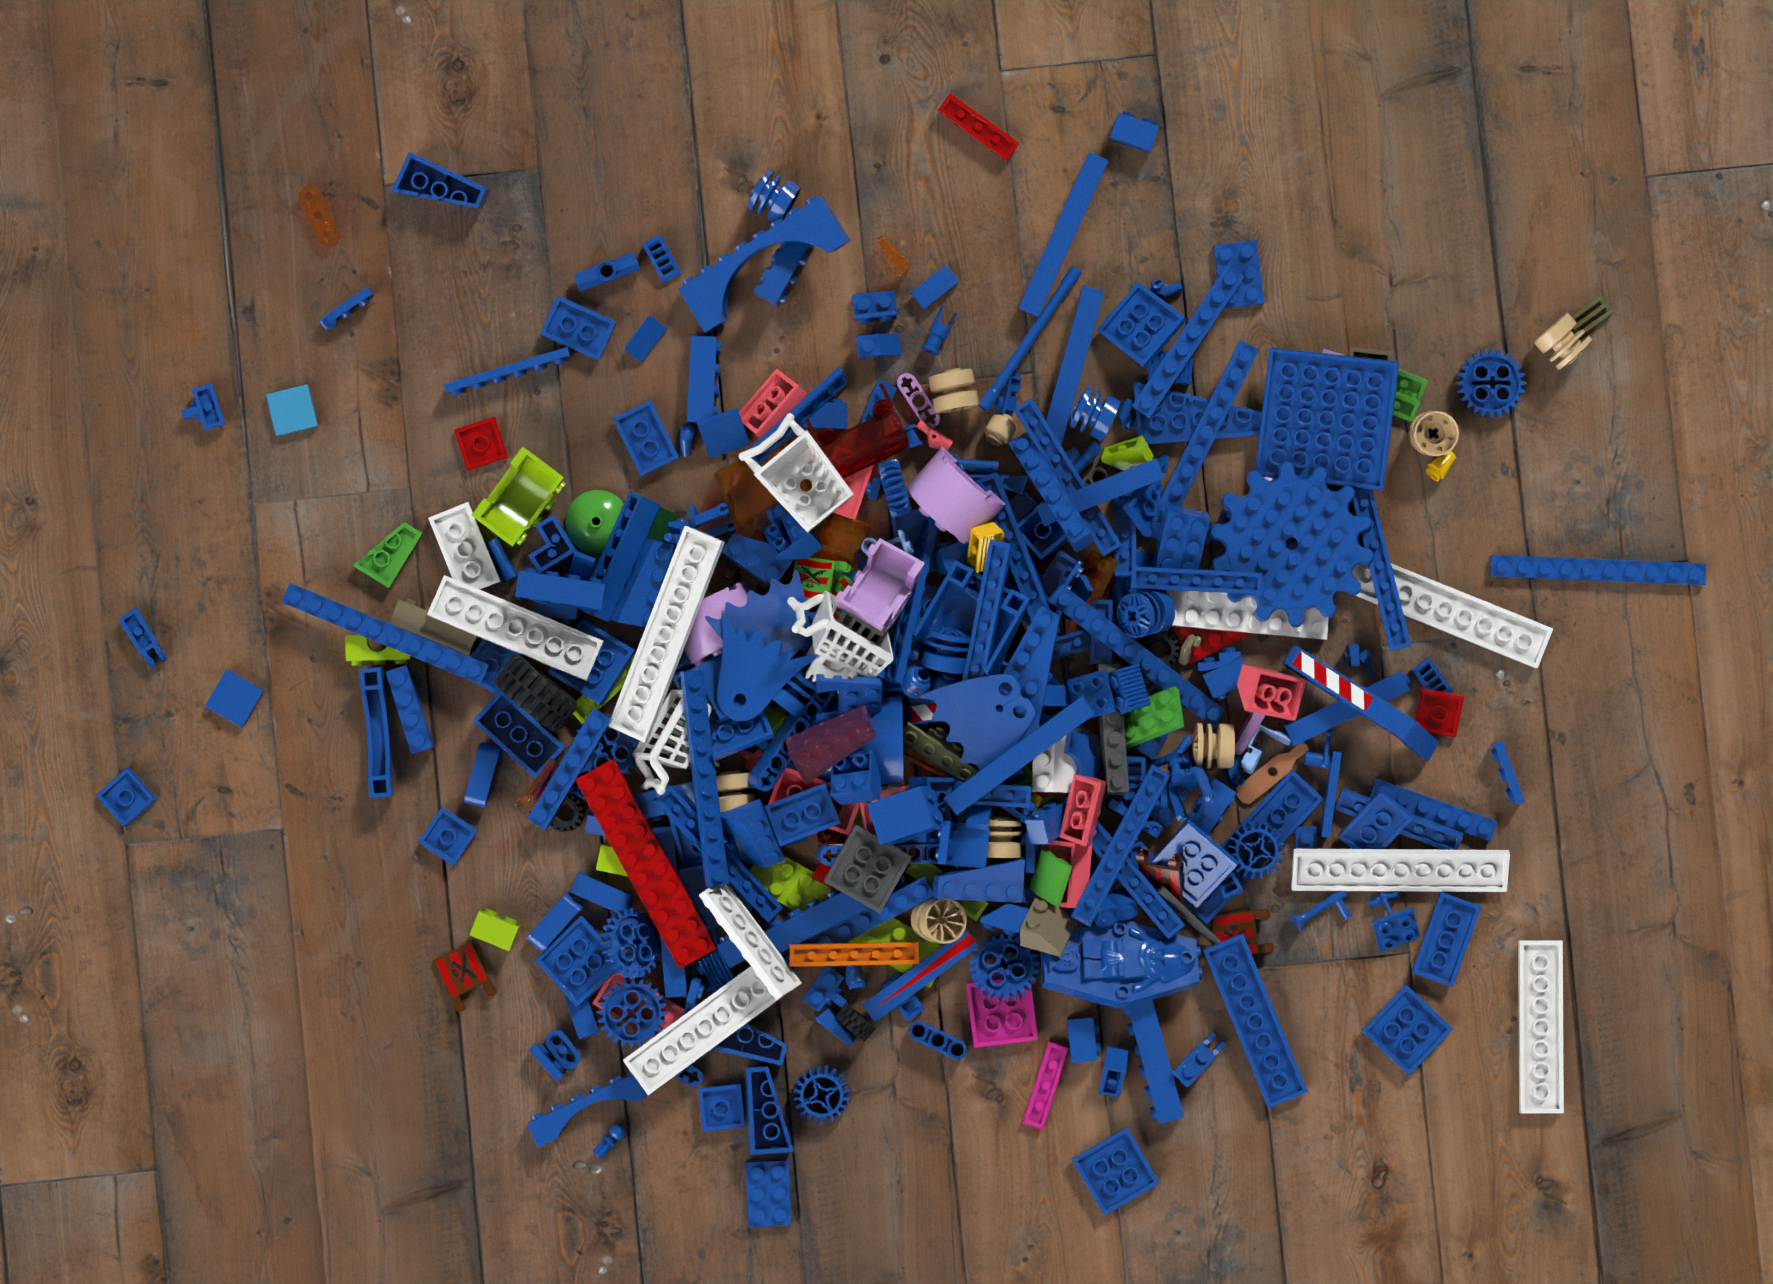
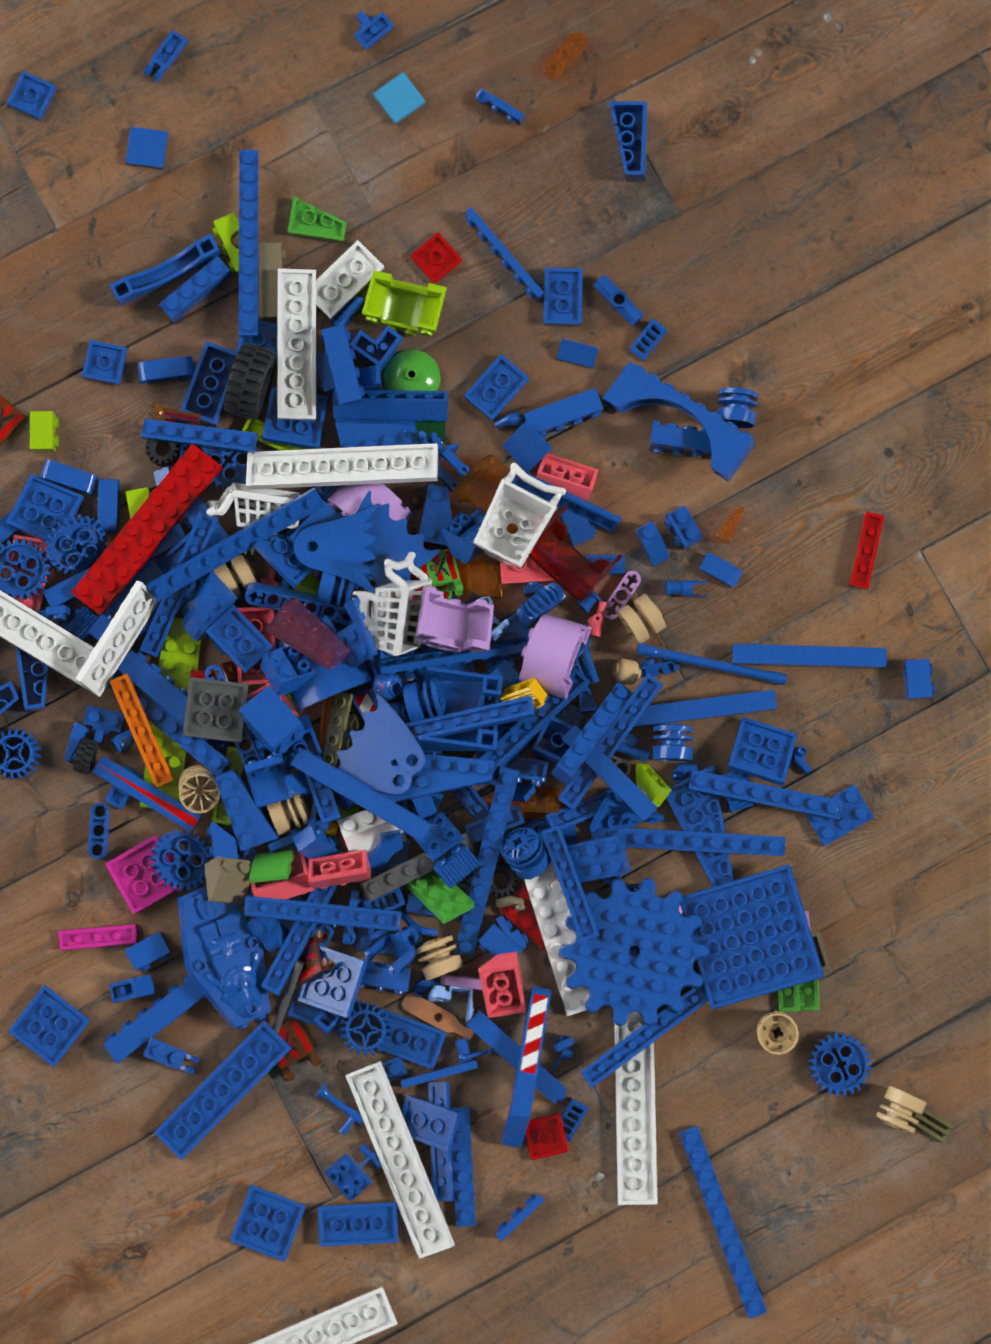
camera: 60 degrees right, 5 degrees down
(1440, 466) = (751, 1050): yellow cone -> none

